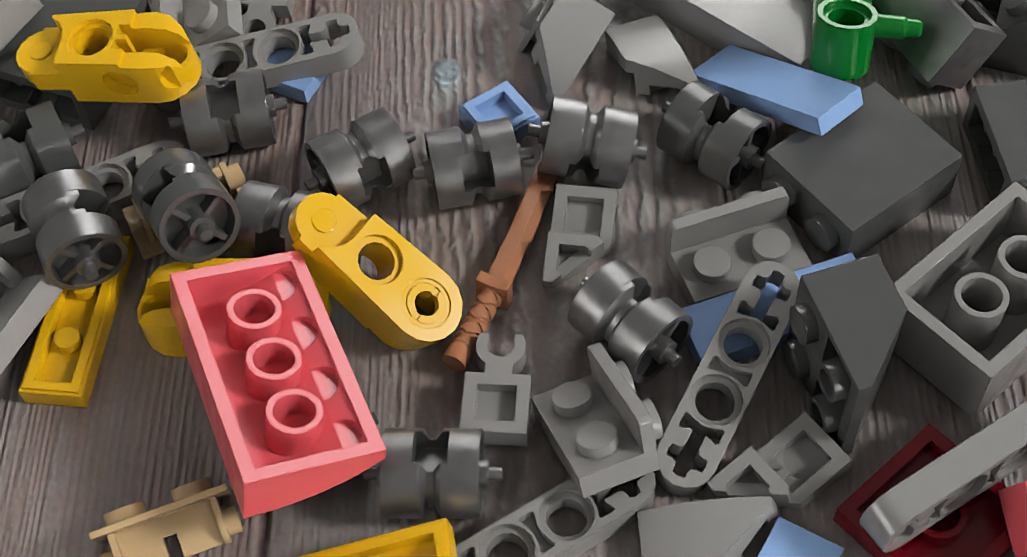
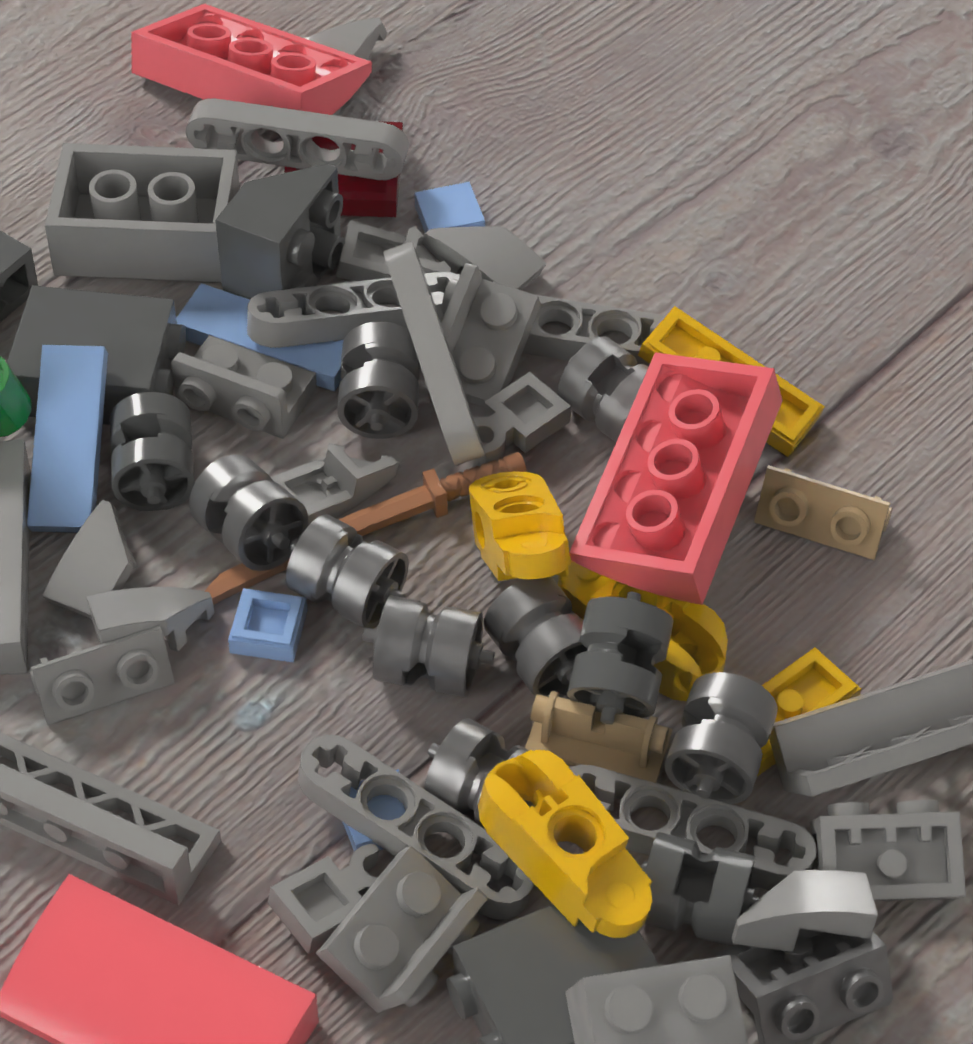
camera: 140 degrees left, 5 degrees down
(659, 345) = (434, 353): none -> light grey beam

